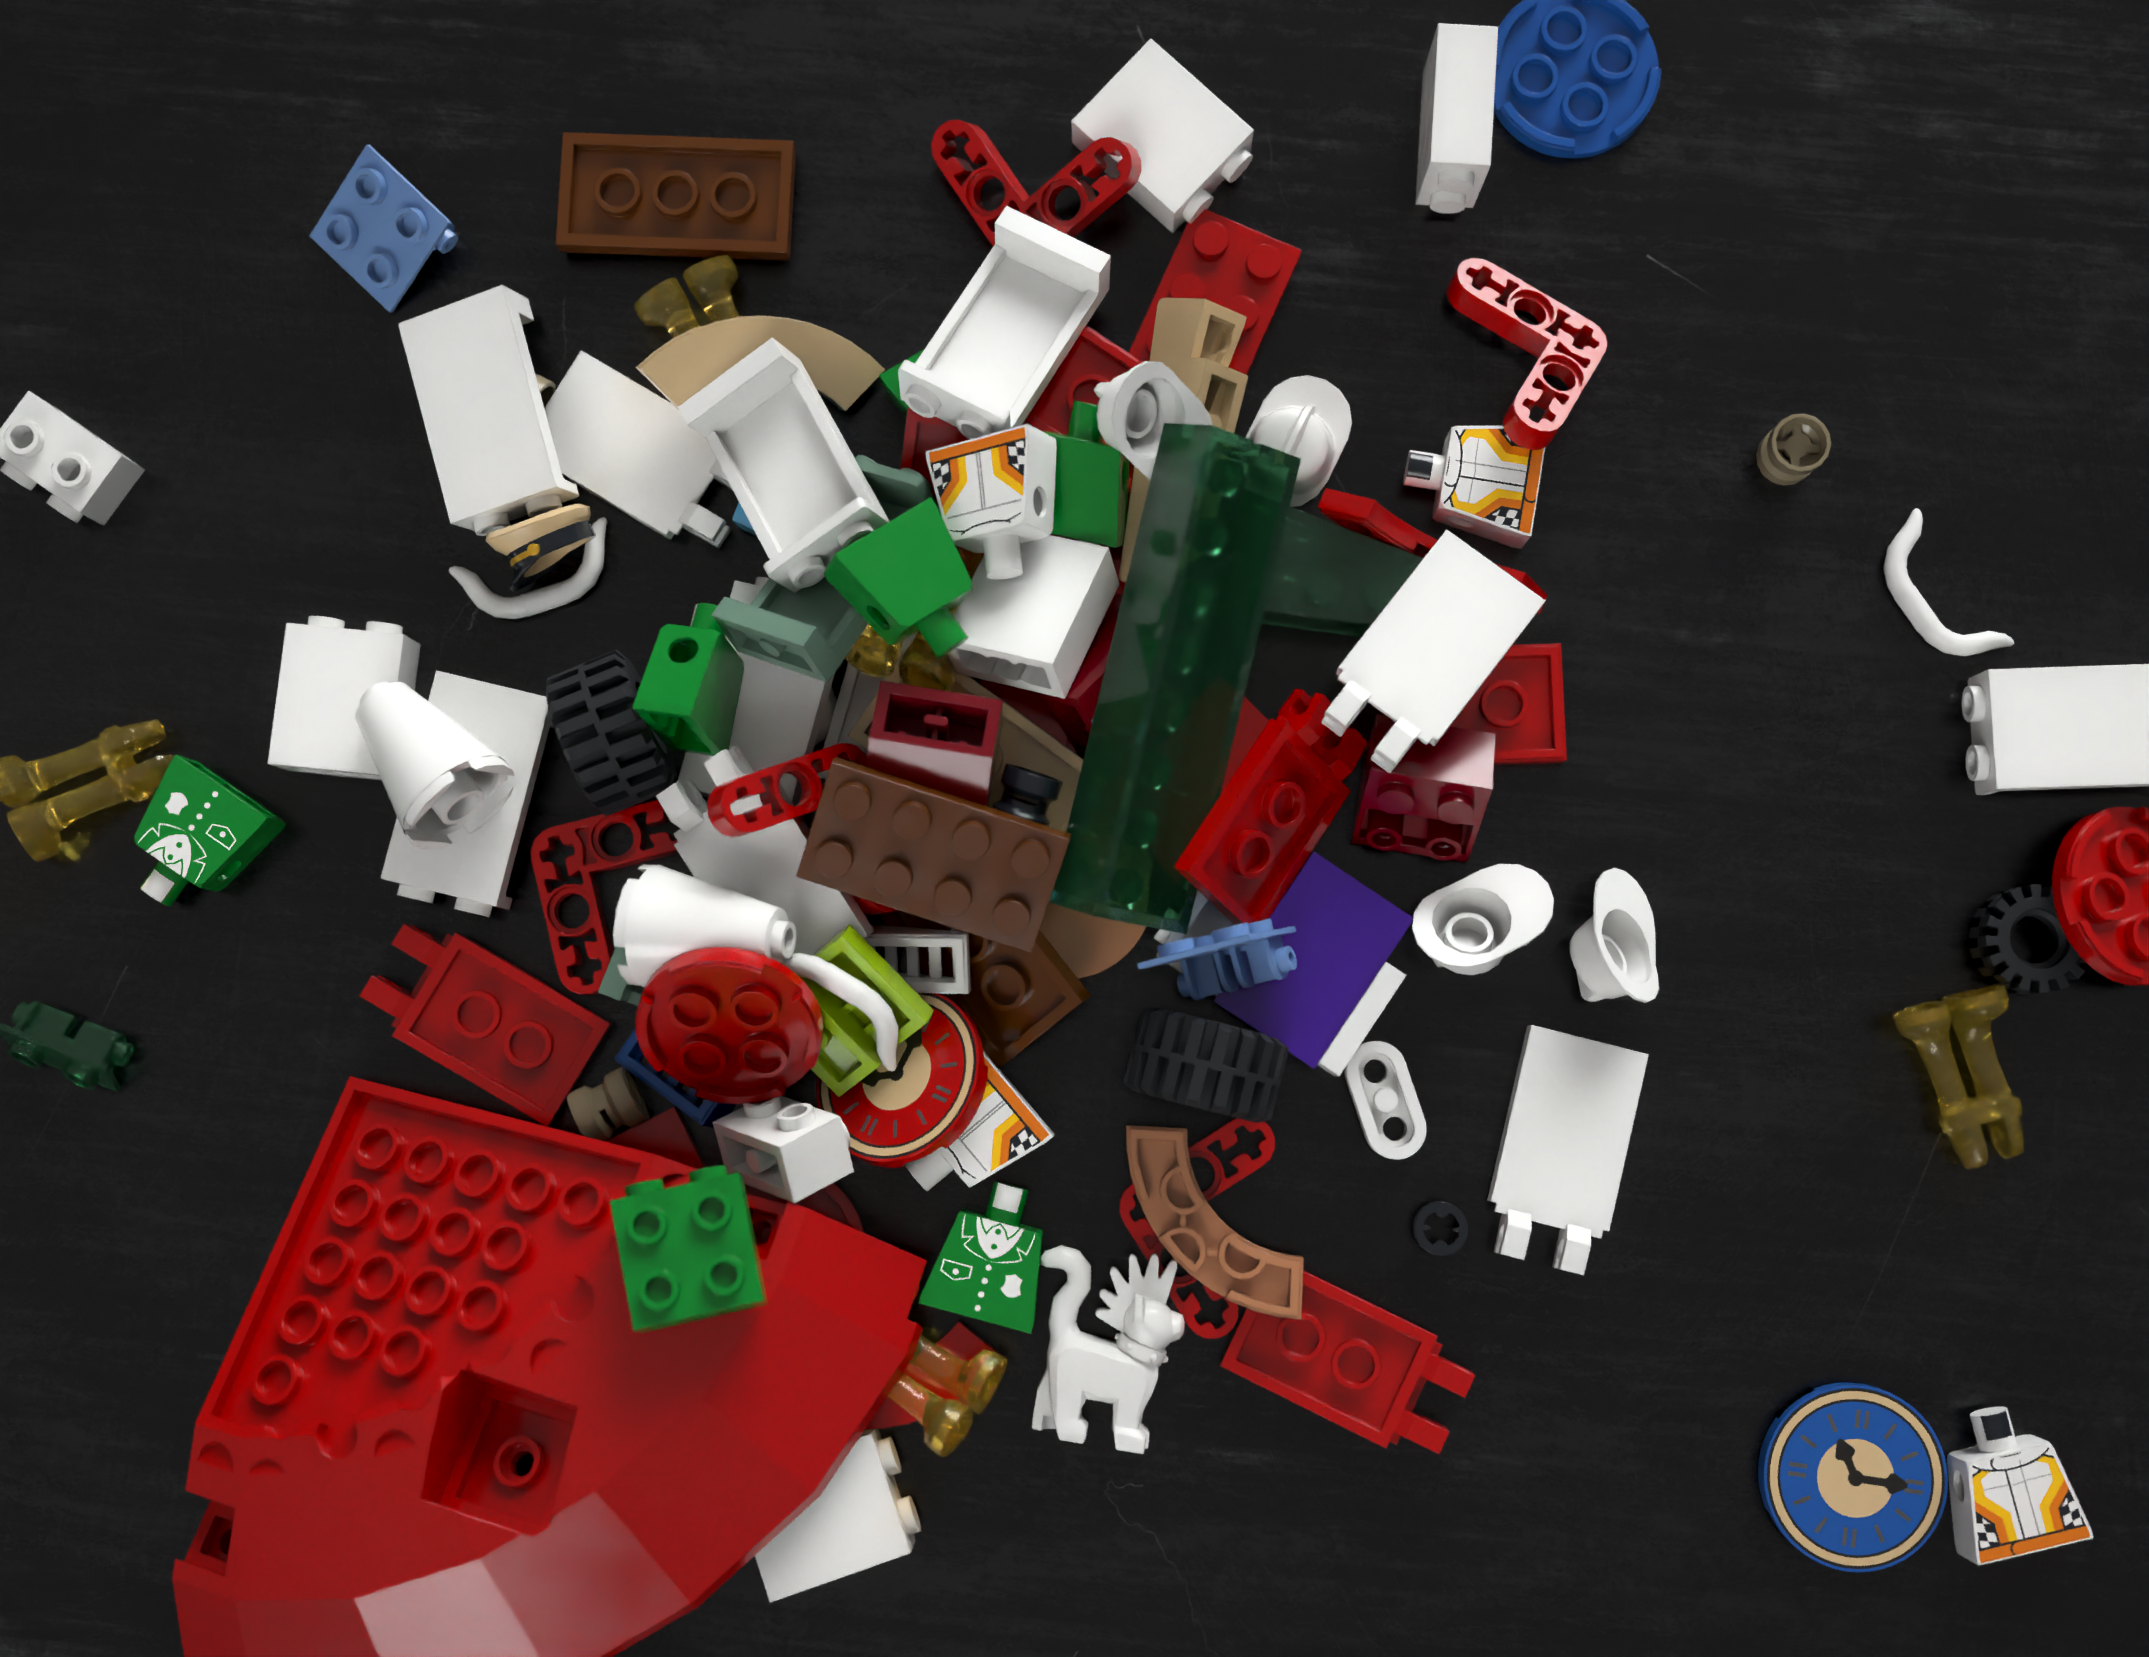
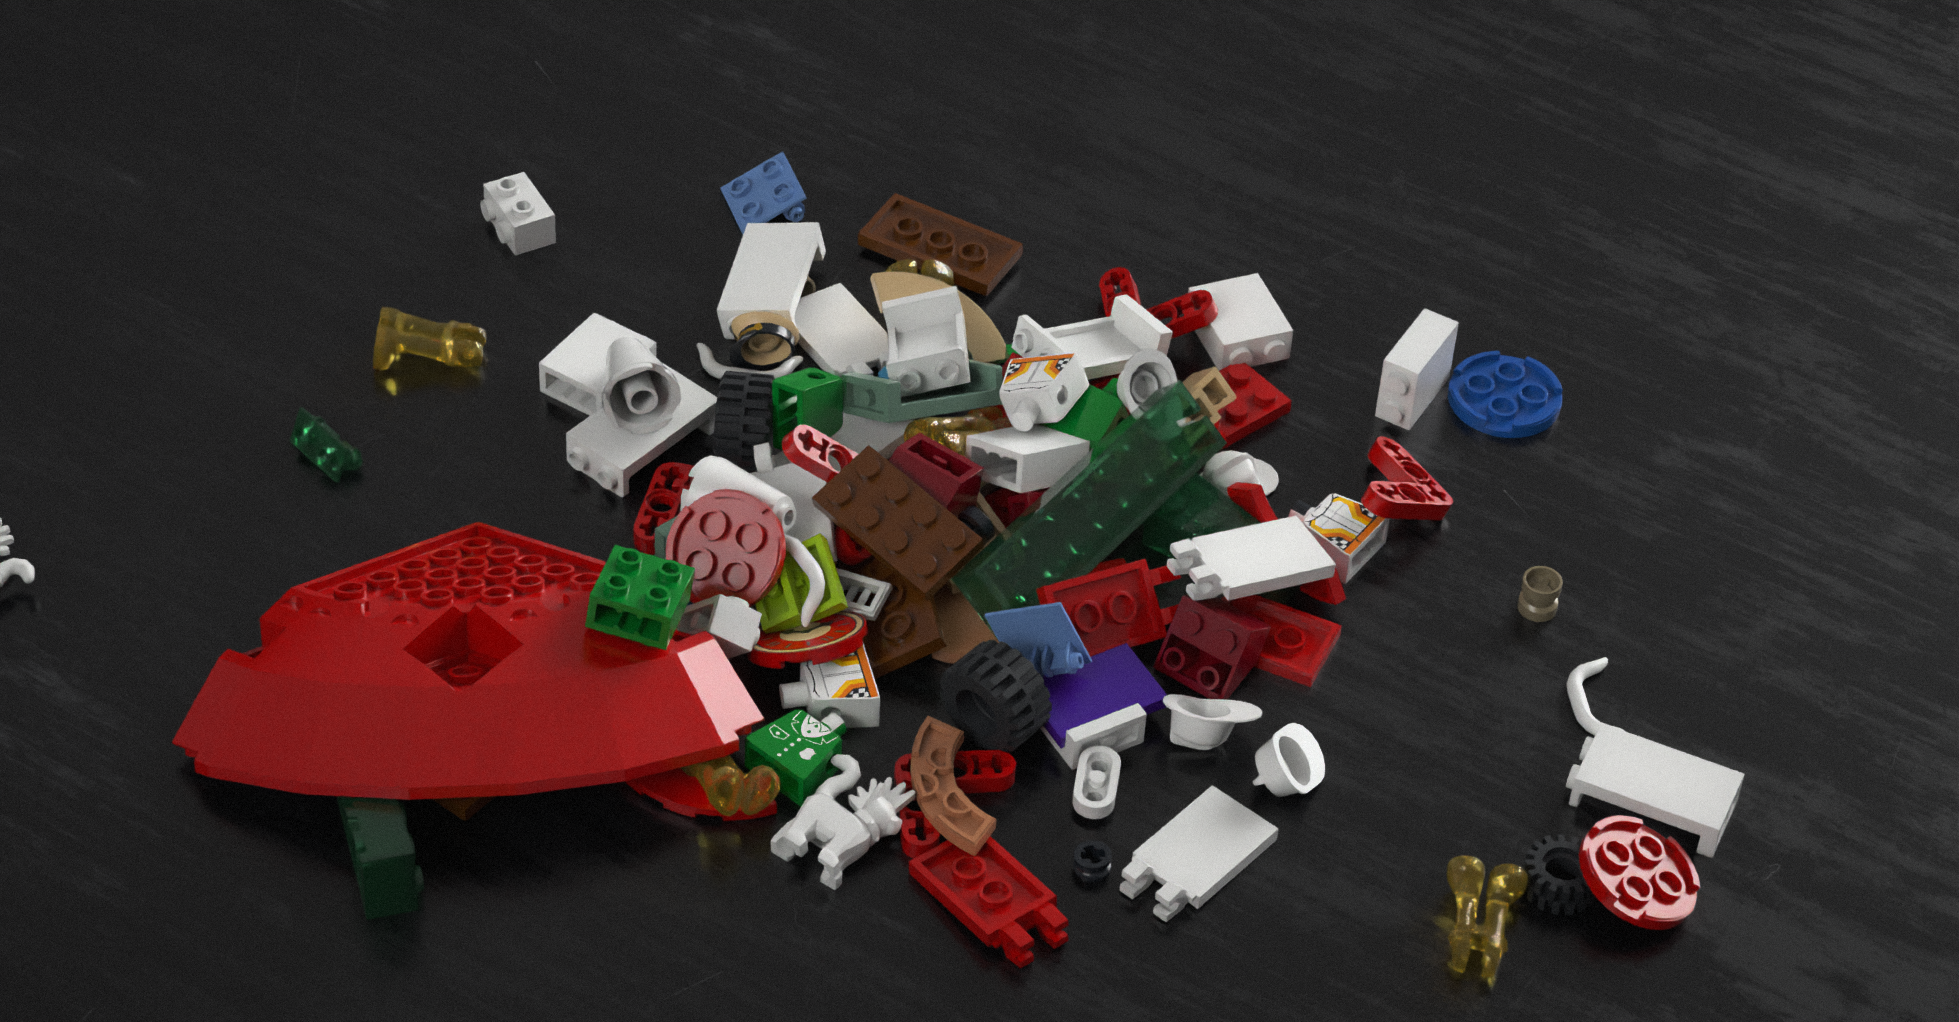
camera: 15 degrees right, 40 degrees down
(200, 831) = (476, 386): green torso -> none
(490, 1022) = (571, 516): red tile -> none
(848, 1528) = (617, 826): white brick -> none
(906, 579) = (962, 392): green torso -> none

